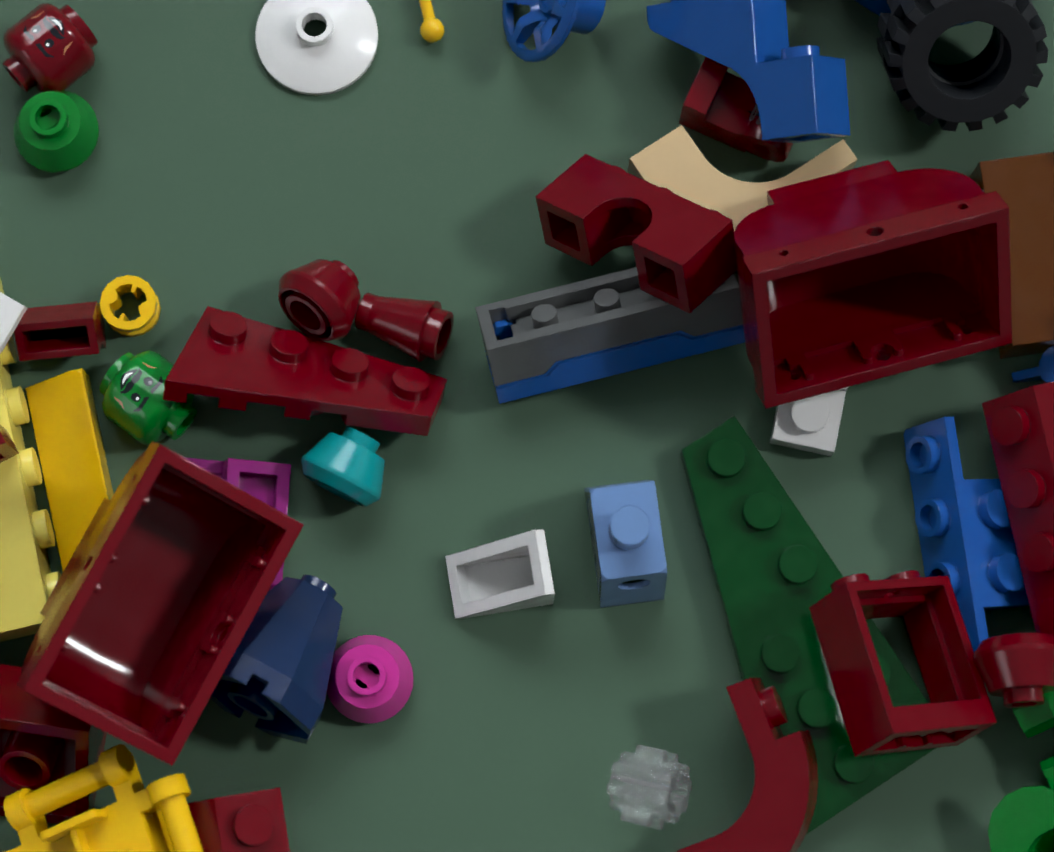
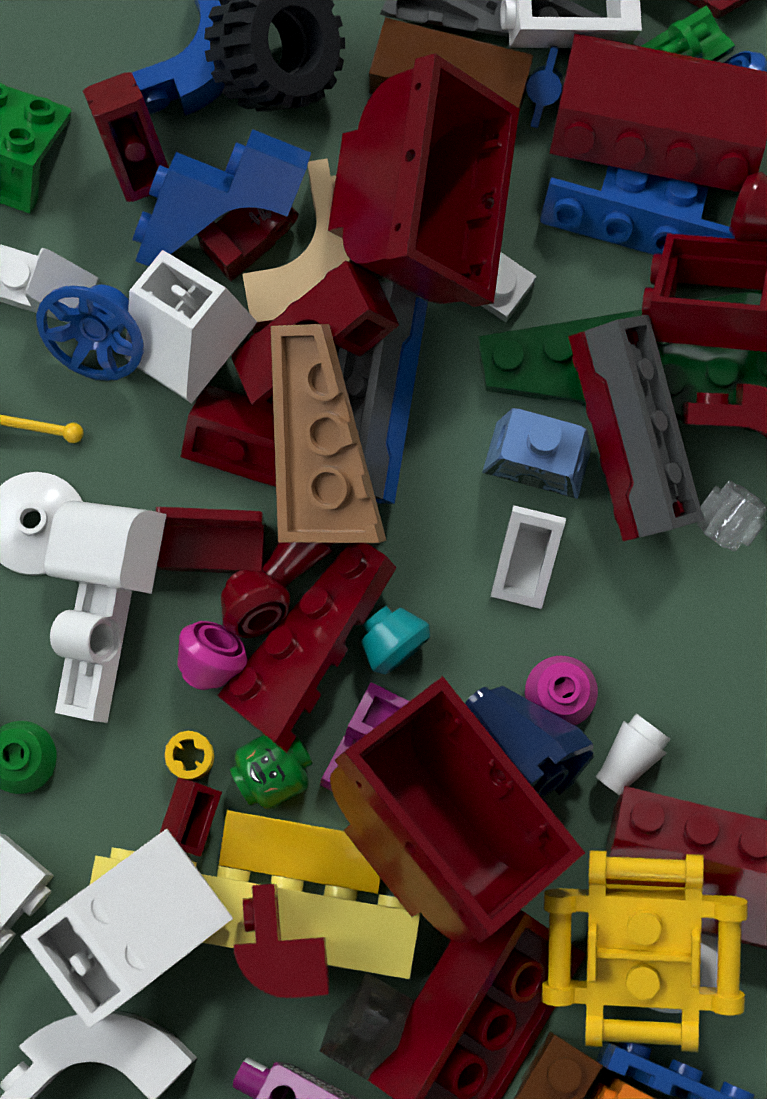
camera: 65 degrees left, 0 degrees up
(245, 277) = (209, 655): none -> dark pink cone
(306, 125) = (110, 556): none -> white plate
(332, 787) = (632, 753): none -> white cone
(373, 226) = (211, 540): none -> dark red panel
(500, 207) = (231, 435): none -> dark red panel
(506, 287) = (318, 452): none -> medium nougat wing
(595, 88) = (185, 325): none -> white slope
(697, 632) = (635, 427): none -> dark grey piece

